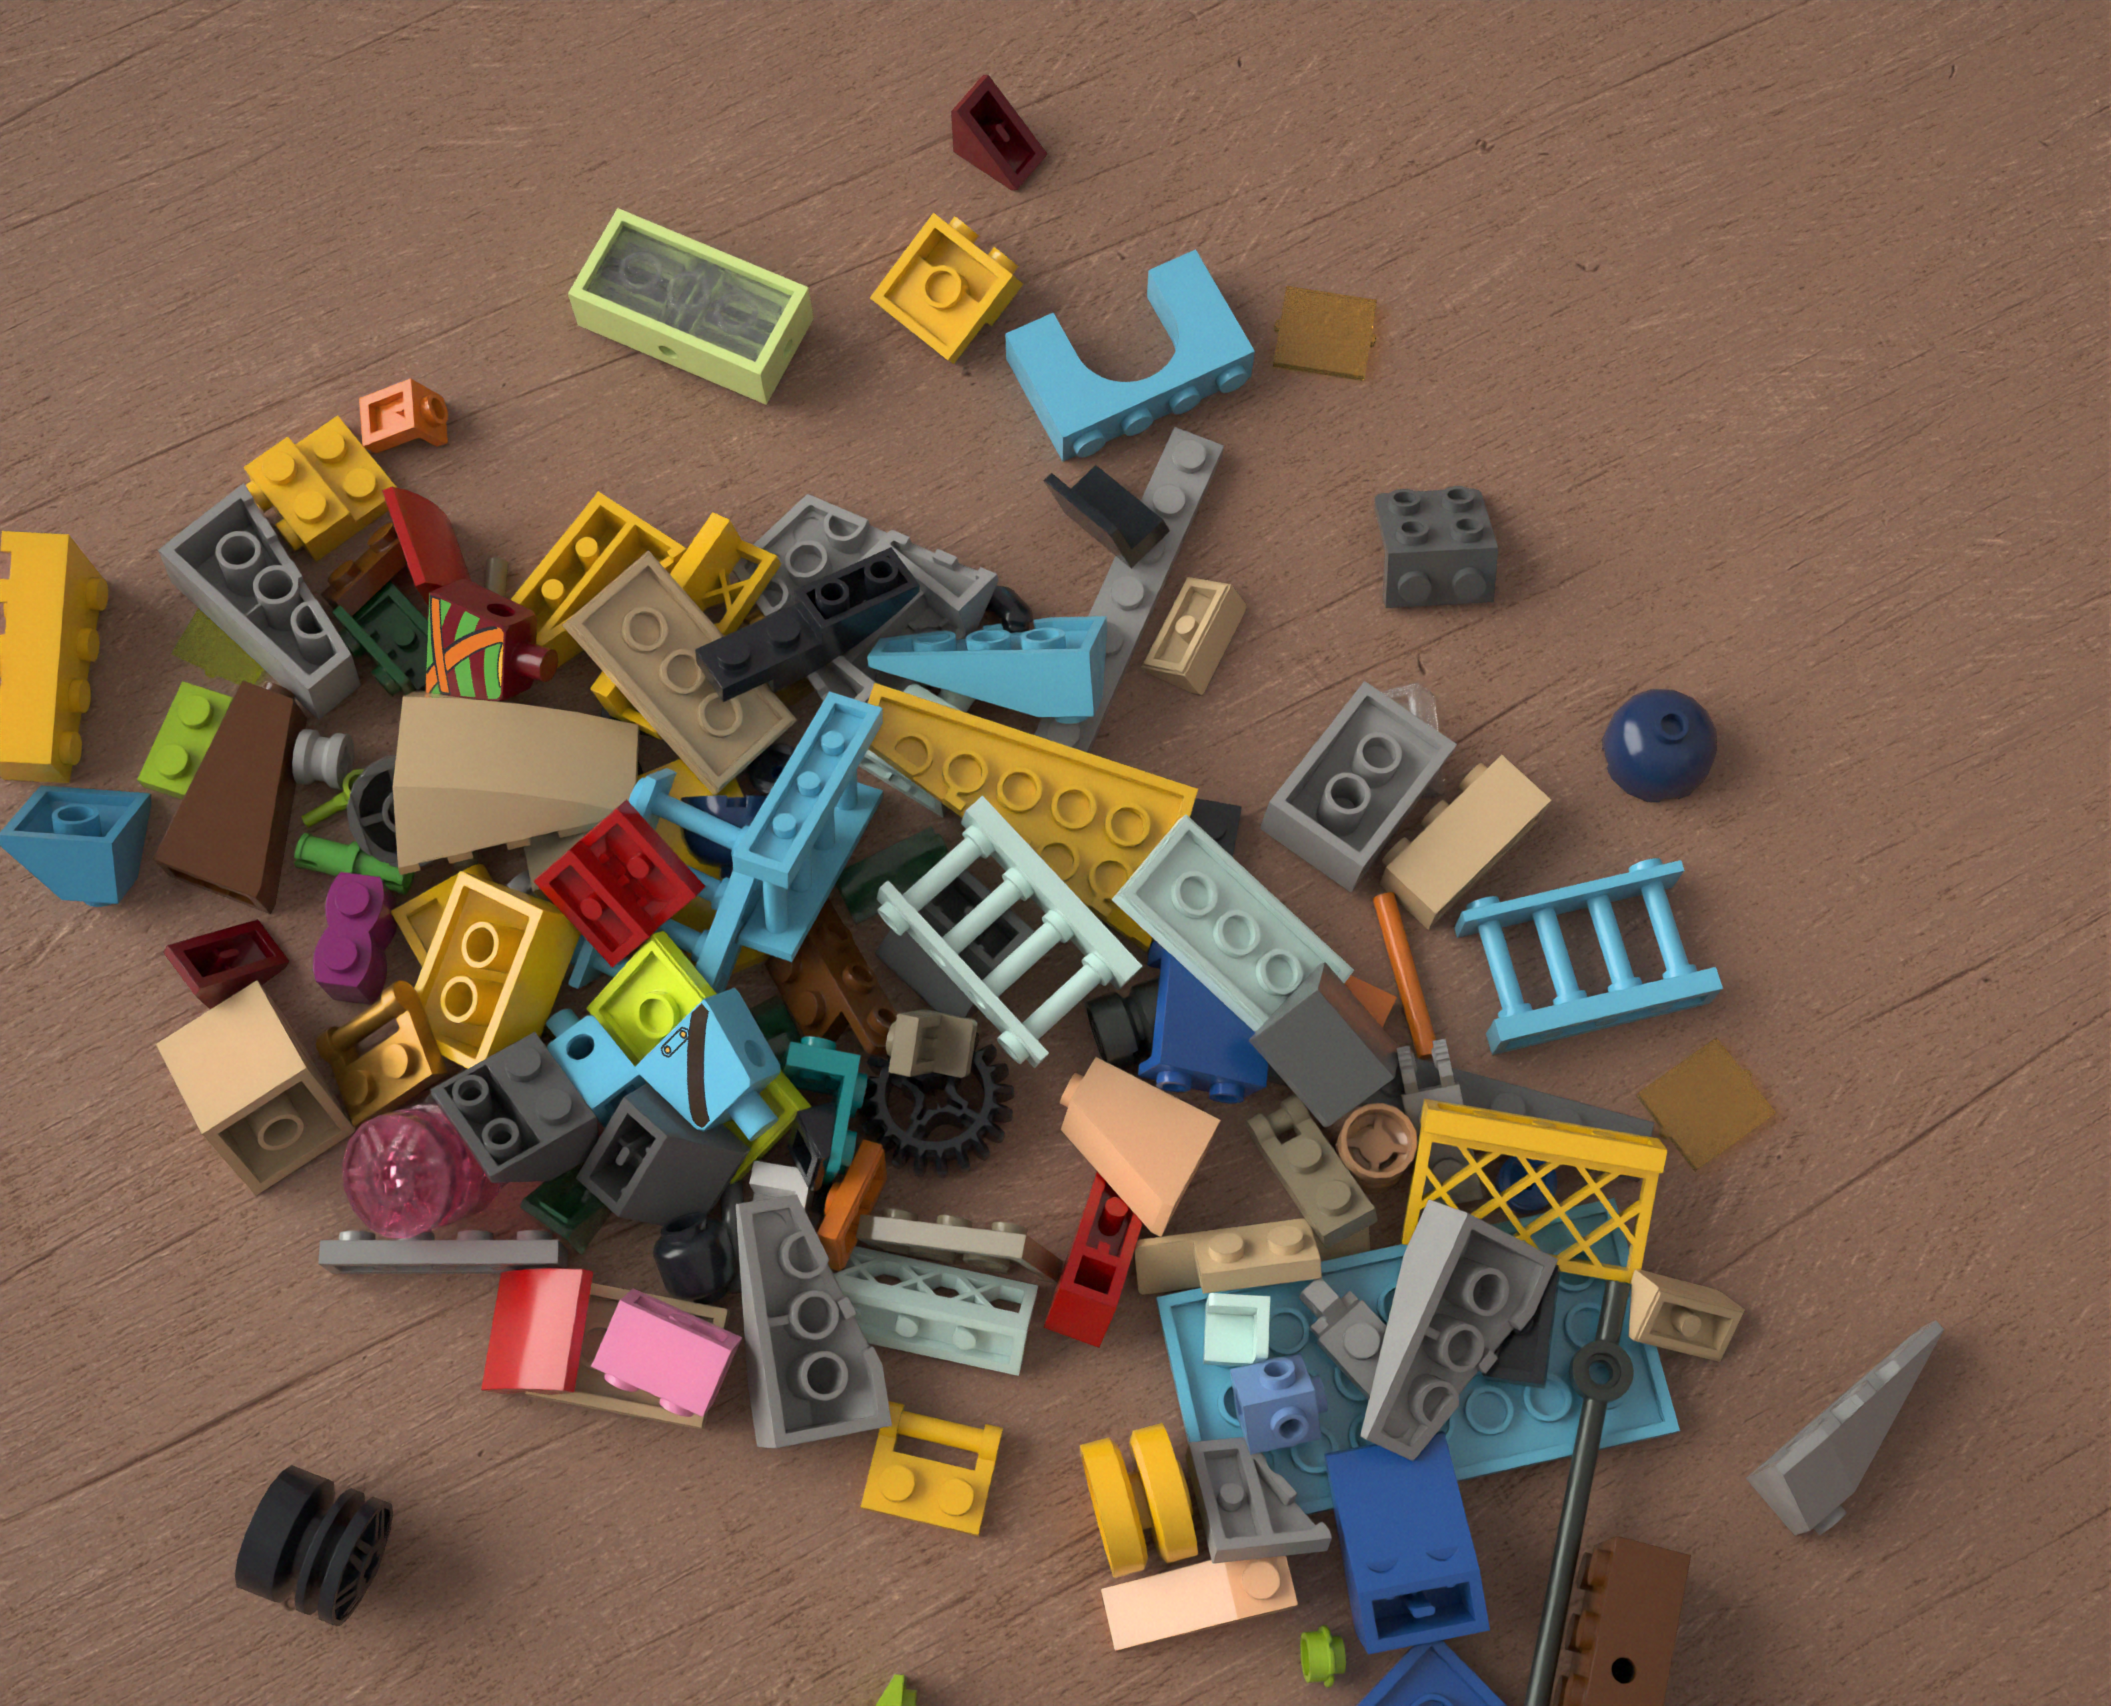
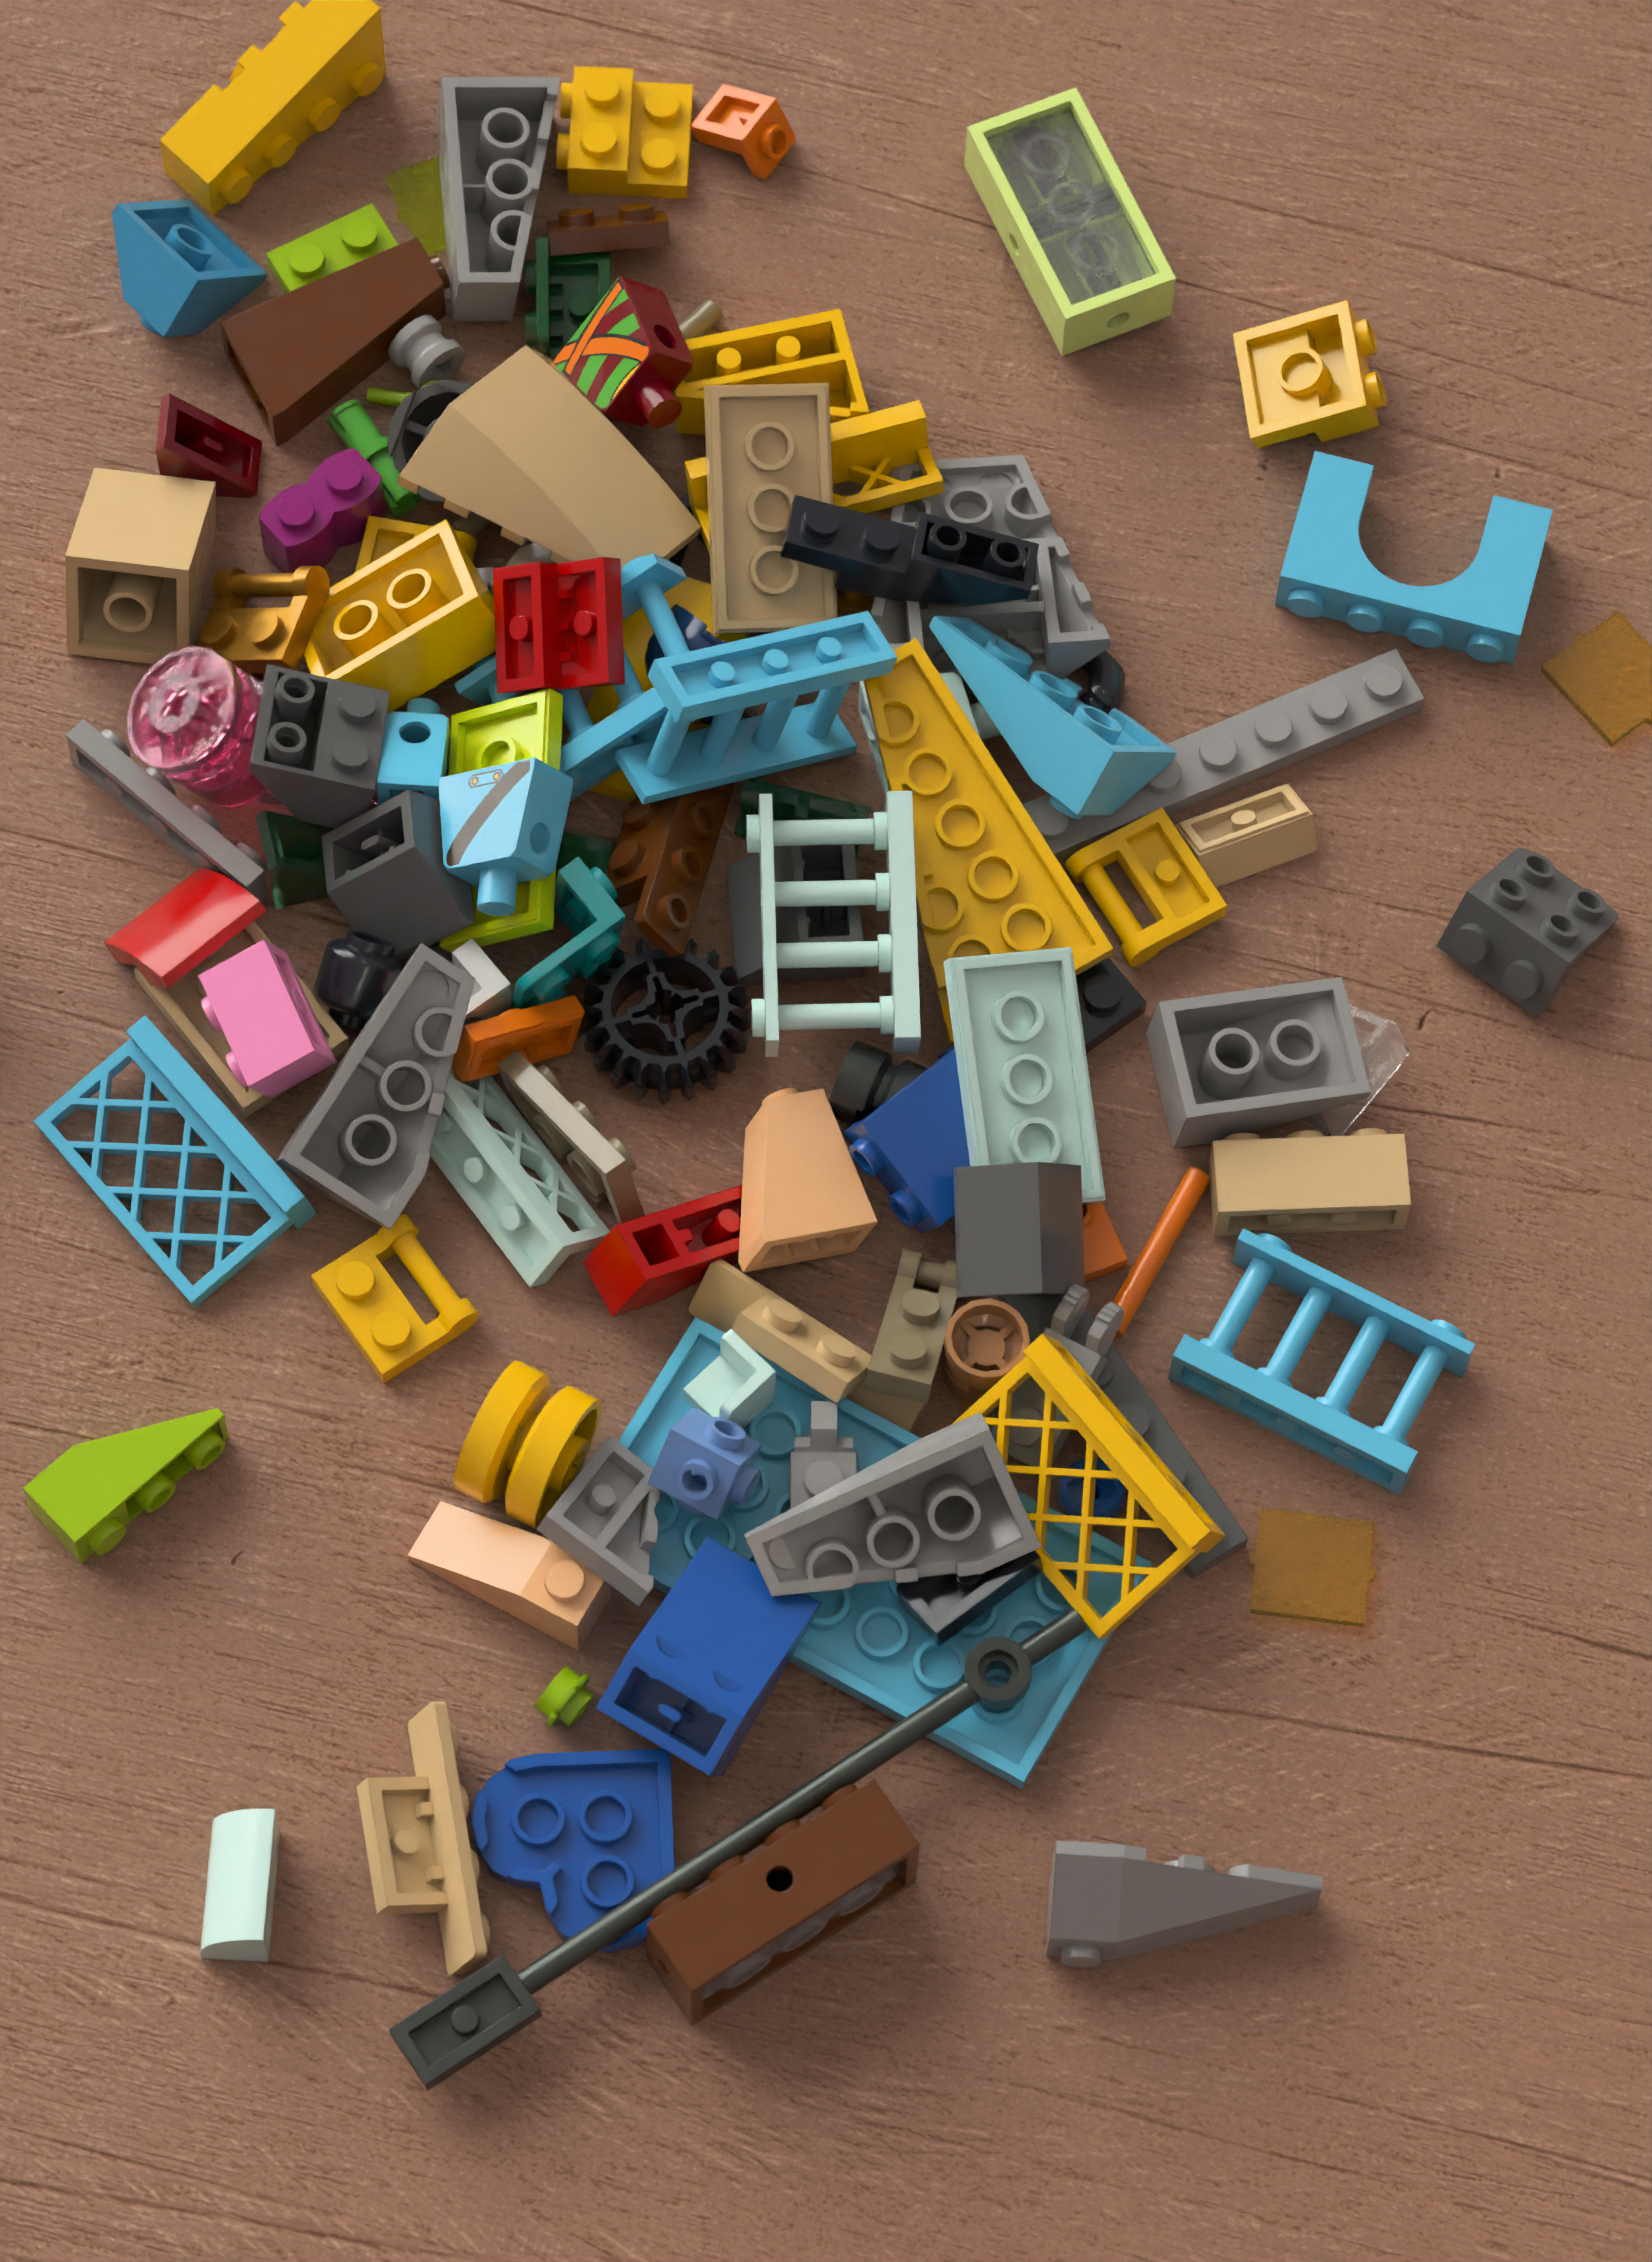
camera: 40 degrees right, 5 degrees down
(425, 541) = (665, 240): red slope -> none
(694, 1458) = (224, 1139): none -> medium azure fence
(812, 1142) = (527, 951): black slope -> none
(931, 1042) = (691, 956): dark tan bracket -> none
(994, 135) = (1475, 279): dark red slope -> none
(1110, 514) = (1262, 673): black panel -> none
(1170, 709) = (1162, 874): none -> yellow plate
(1660, 745) = (1564, 1250): dark blue cylinder -> none
(1681, 1315) = (1113, 1696): tan slope -> none

